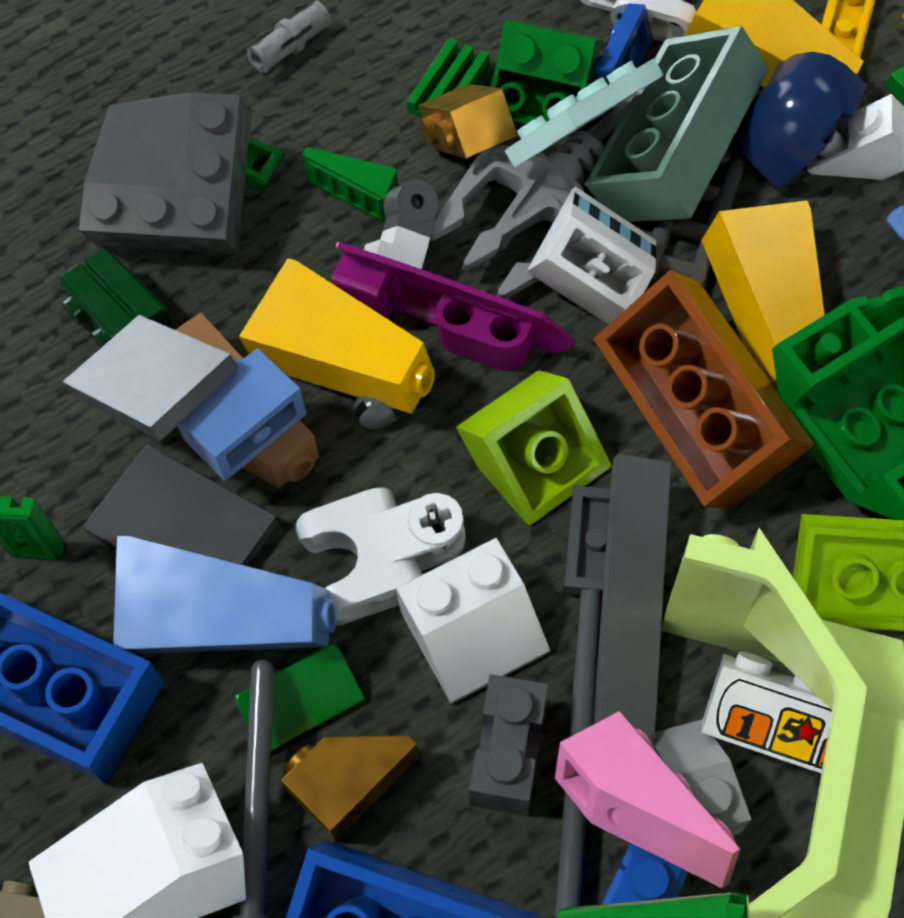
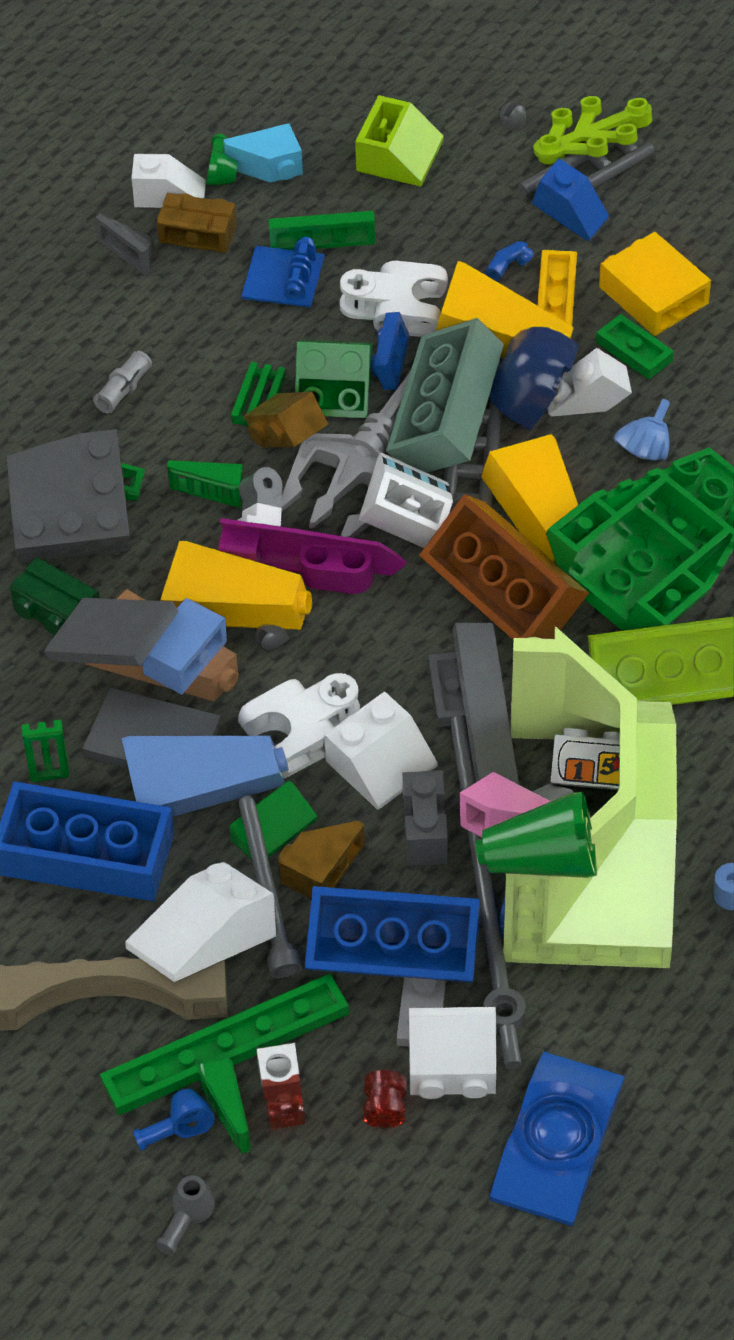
camera: 15 degrees left, 10 degrees down
(535, 444) = (394, 634): lime slope -> none
(573, 114) = (373, 397): light aqua plate -> none

